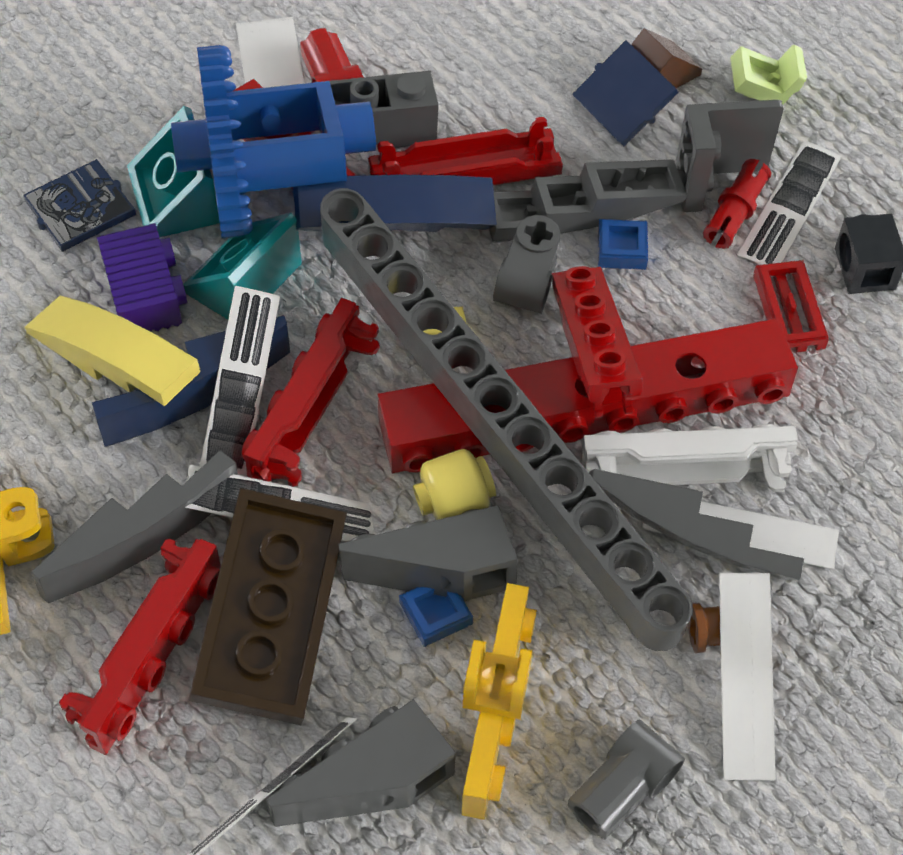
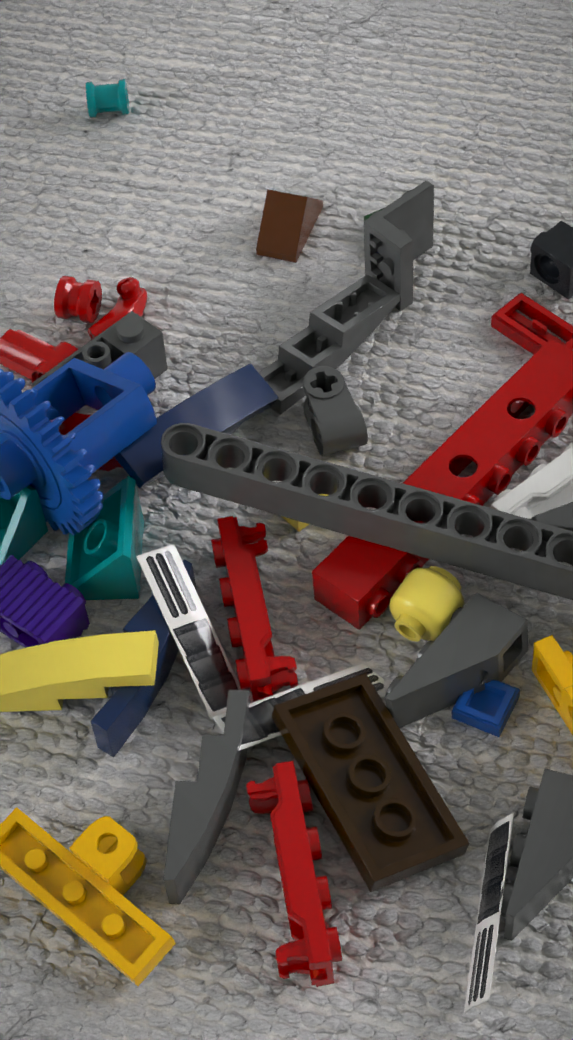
camera: 30 degrees left, 5 degrees down
(408, 35) = (77, 299): none -> red wheel
(447, 68) = (131, 299): none -> red arm
(489, 154) = (219, 355): red piece -> none
(596, 336) = (441, 427): red piece -> none
(622, 244) = (380, 358): blue tile -> none
(625, 93) = (286, 247): dark blue piece -> none
(737, 203) = (439, 280): red pin -> none
(766, 77) = (381, 179): yellowish green bracket -> none
(789, 204) = (471, 262): sticker -> none

